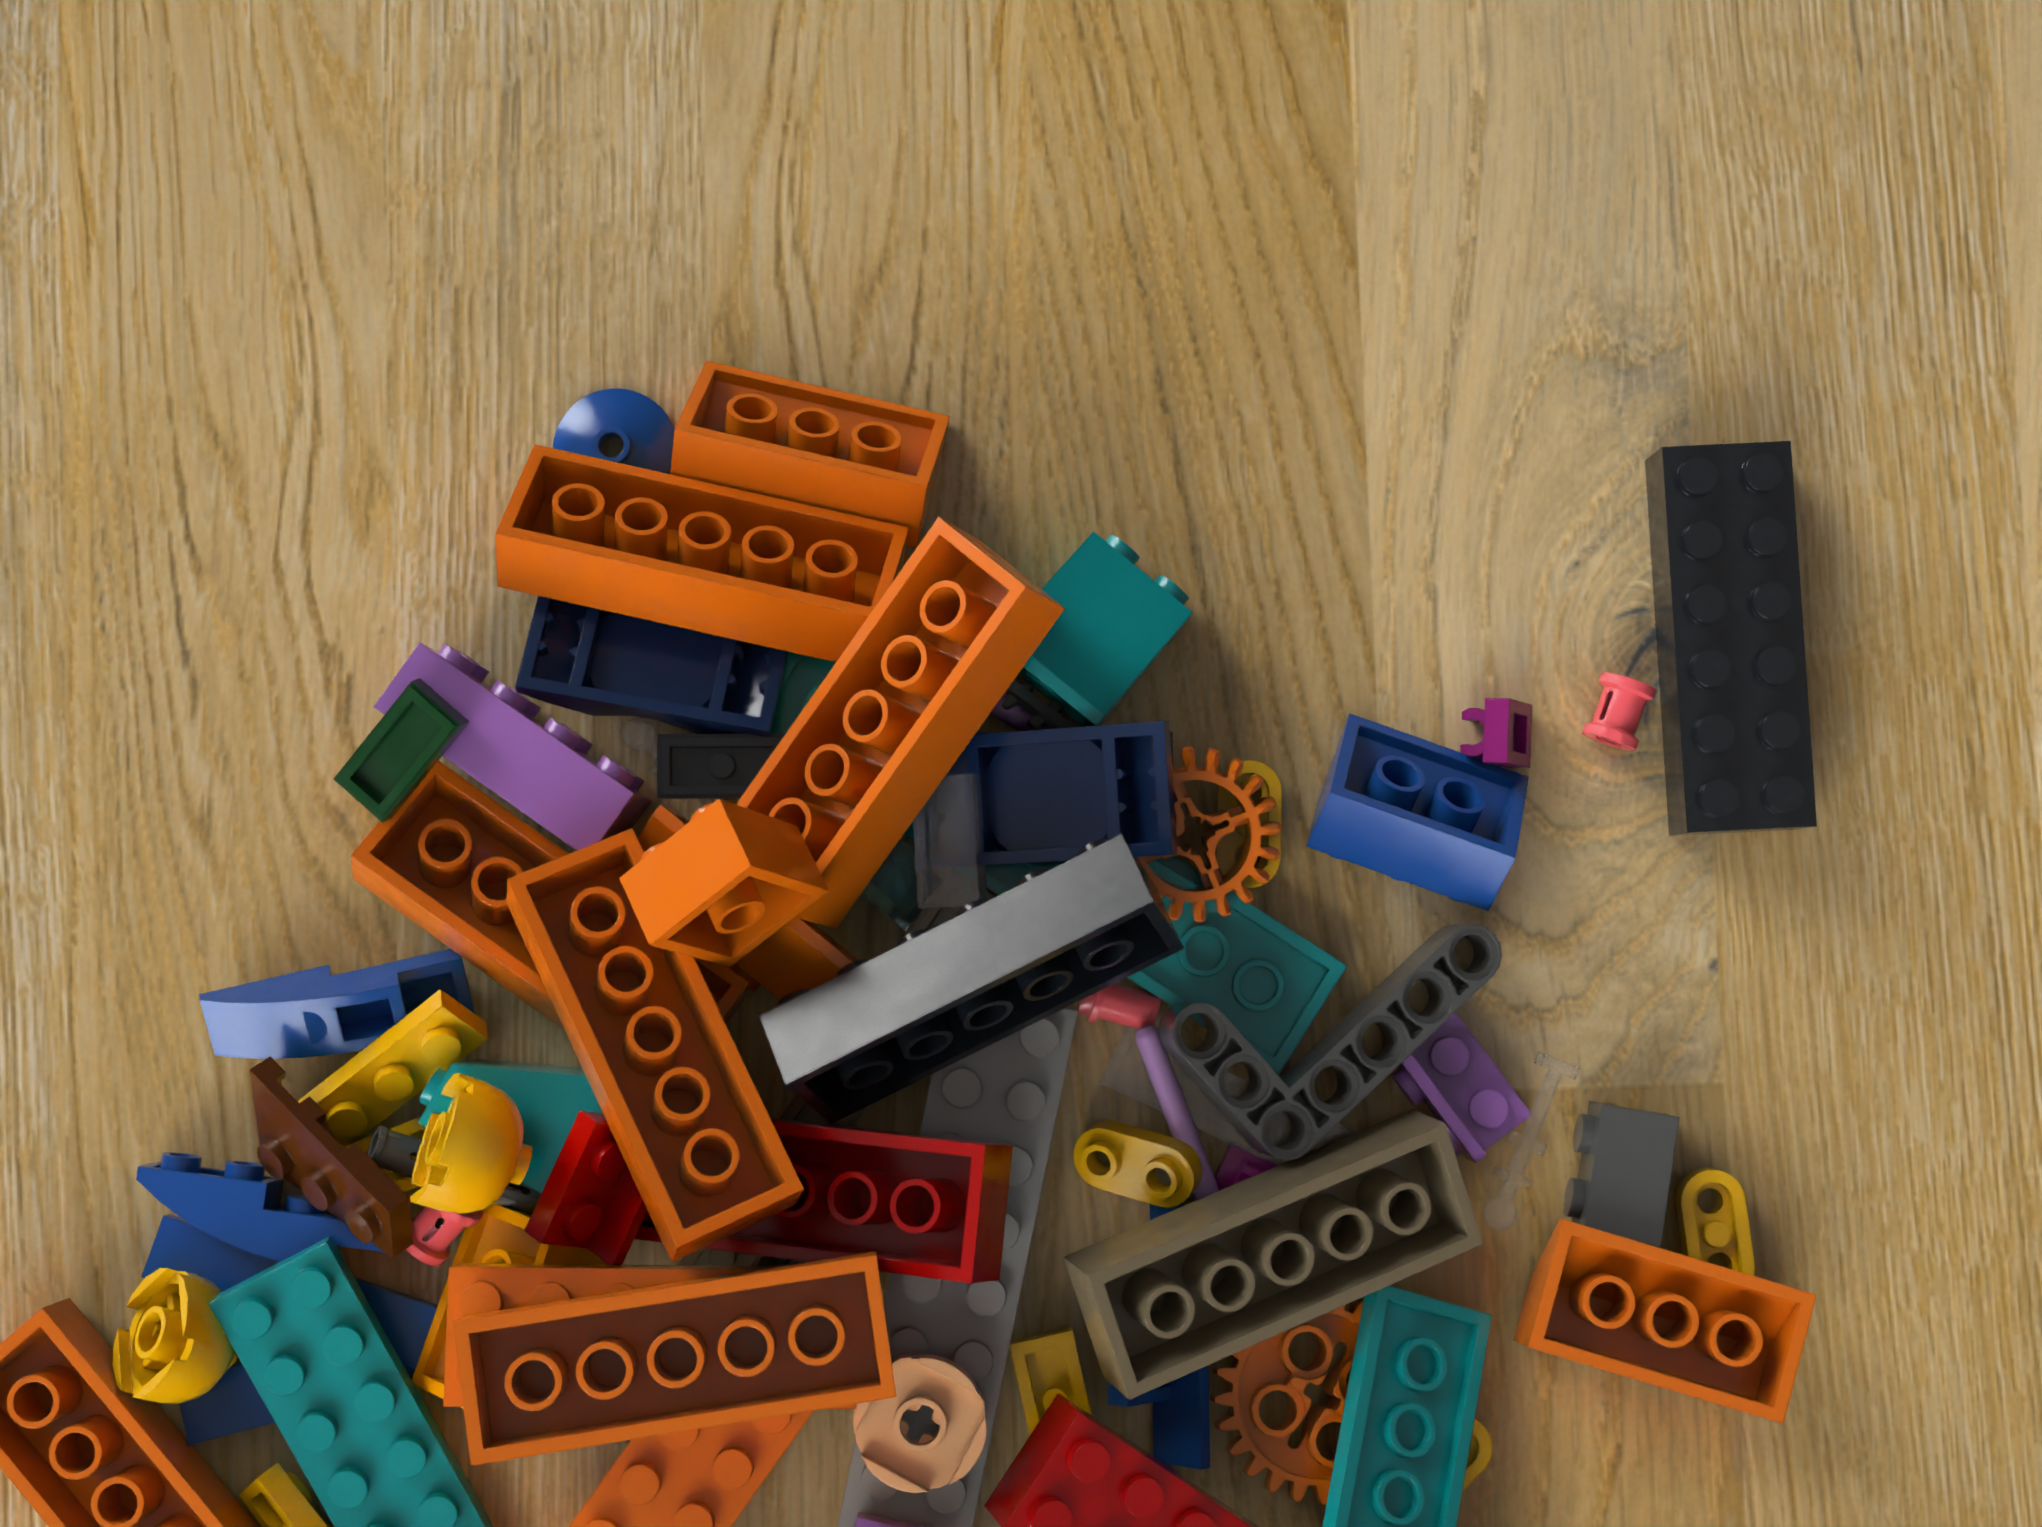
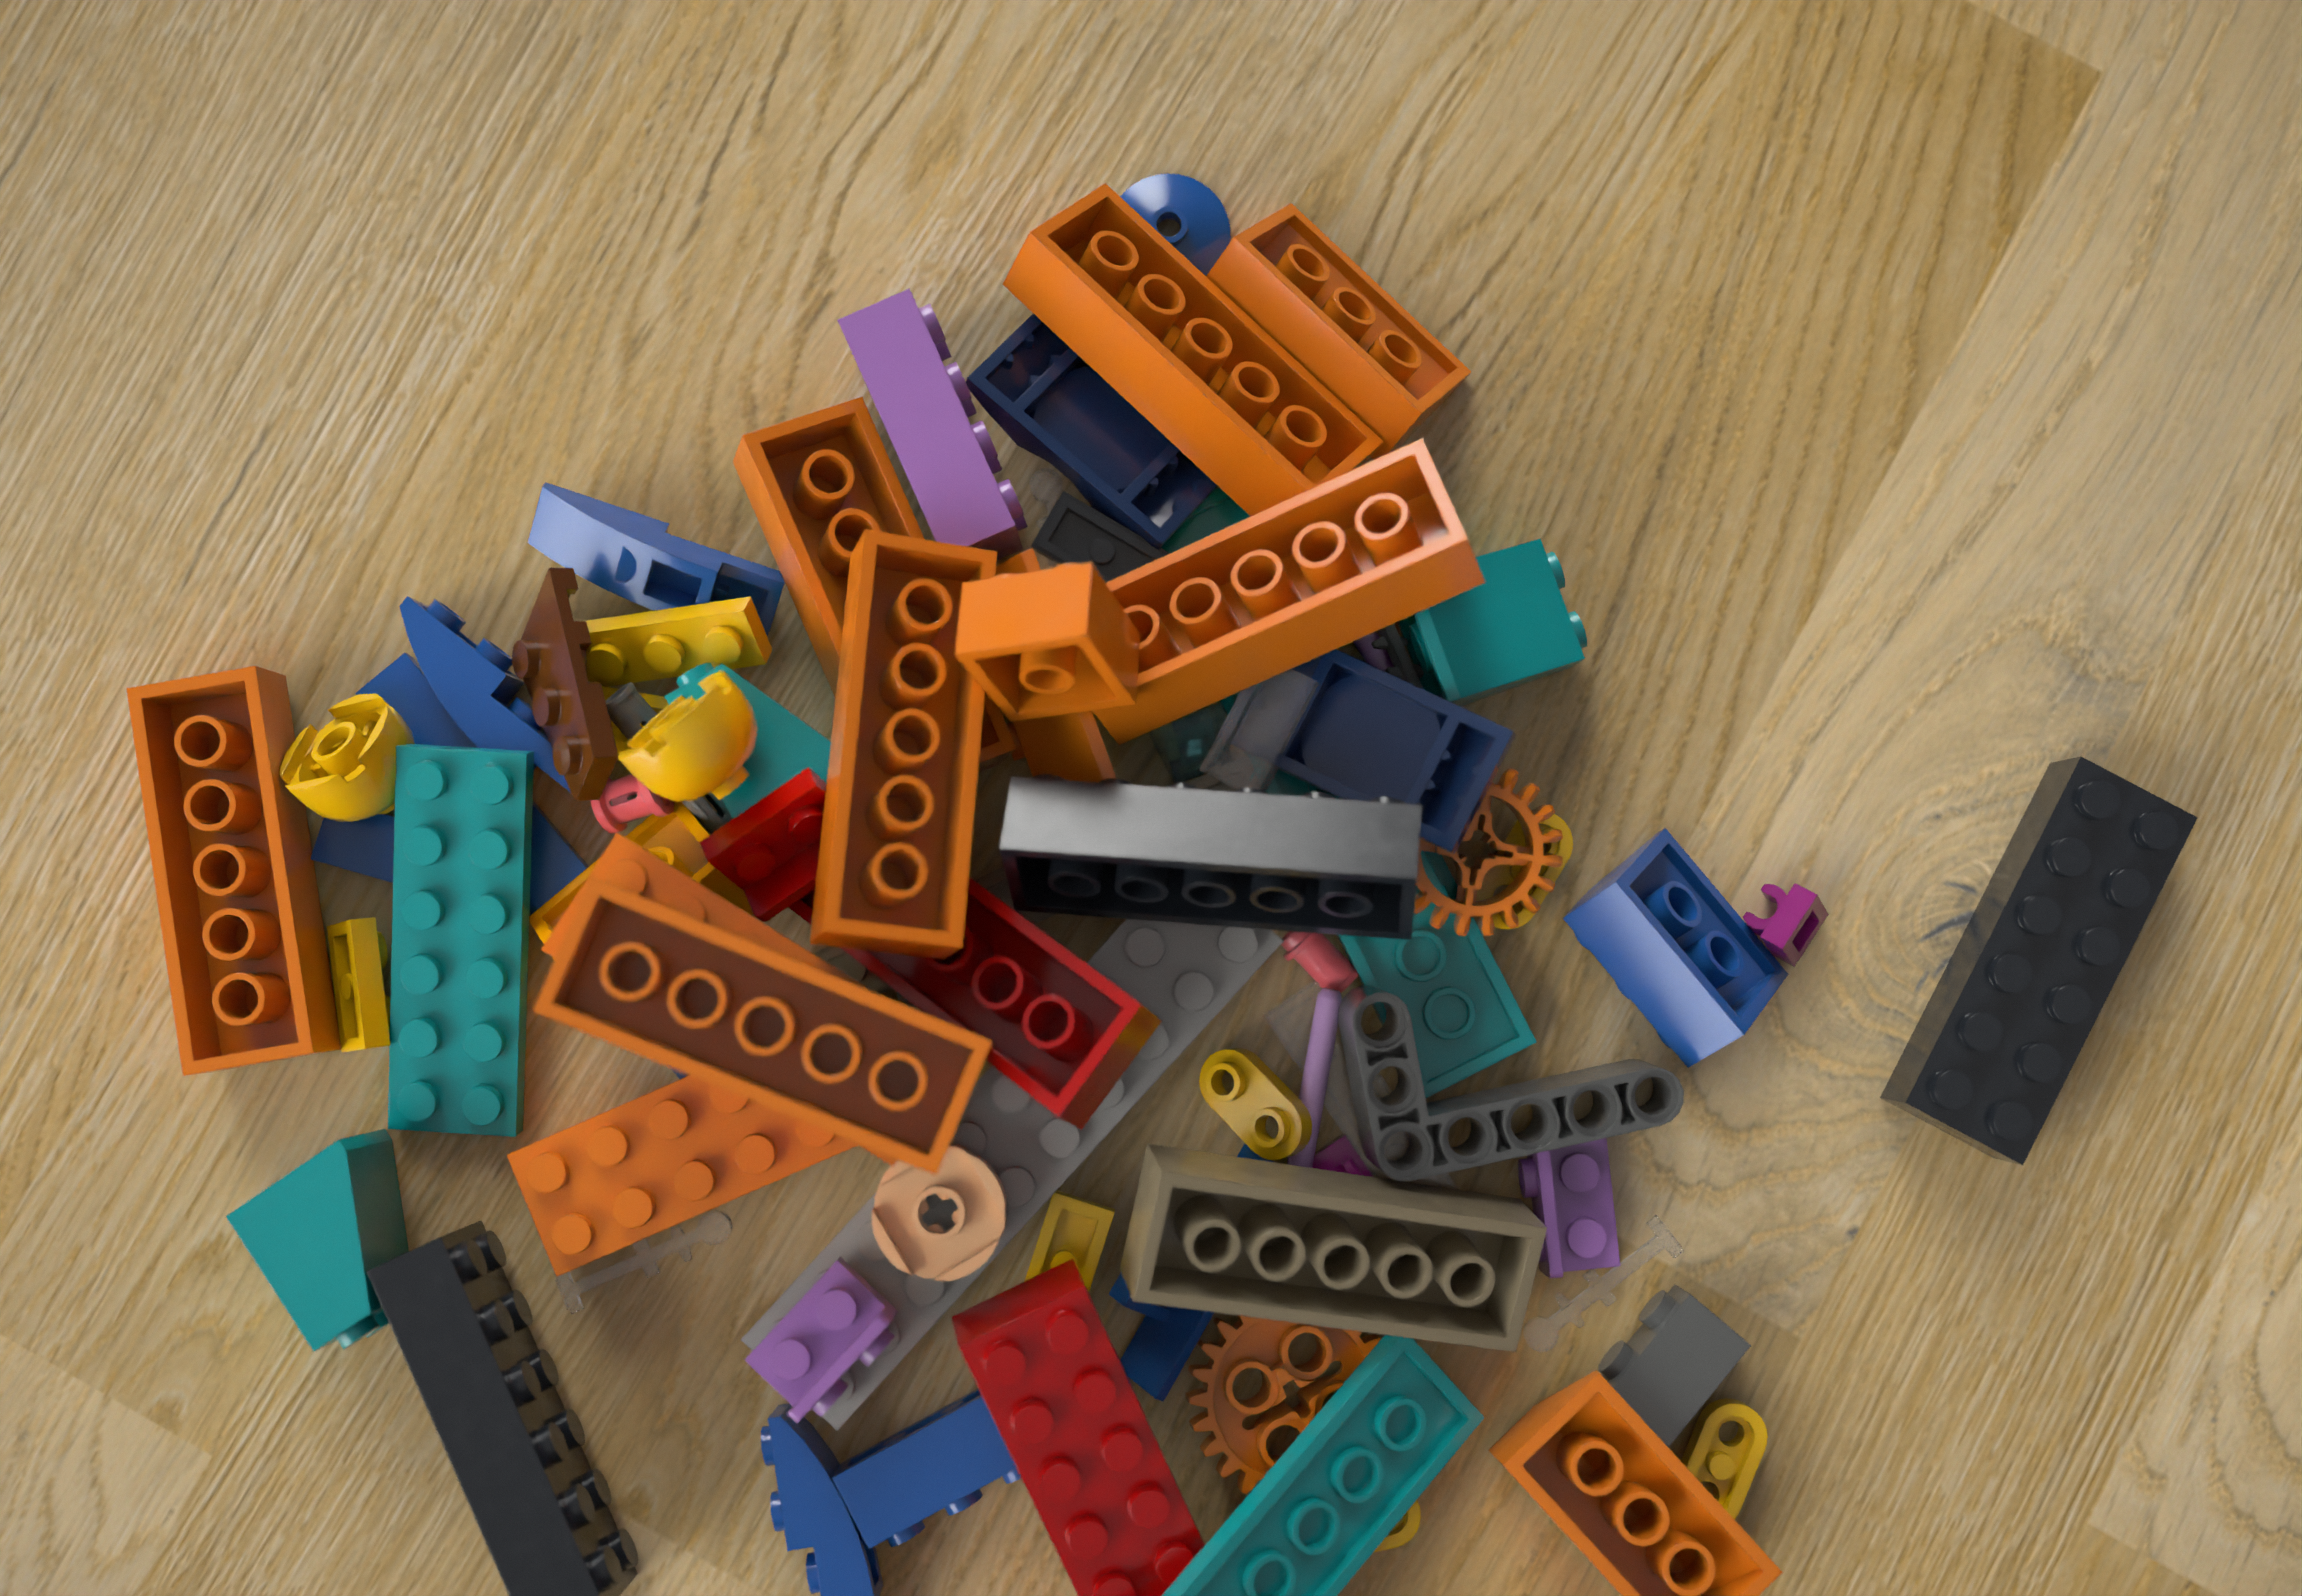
camera: 30 degrees right, 0 degrees up
(401, 750) = (839, 370): dark green tile -> none
(1619, 711) = (1902, 964): coral bush -> none

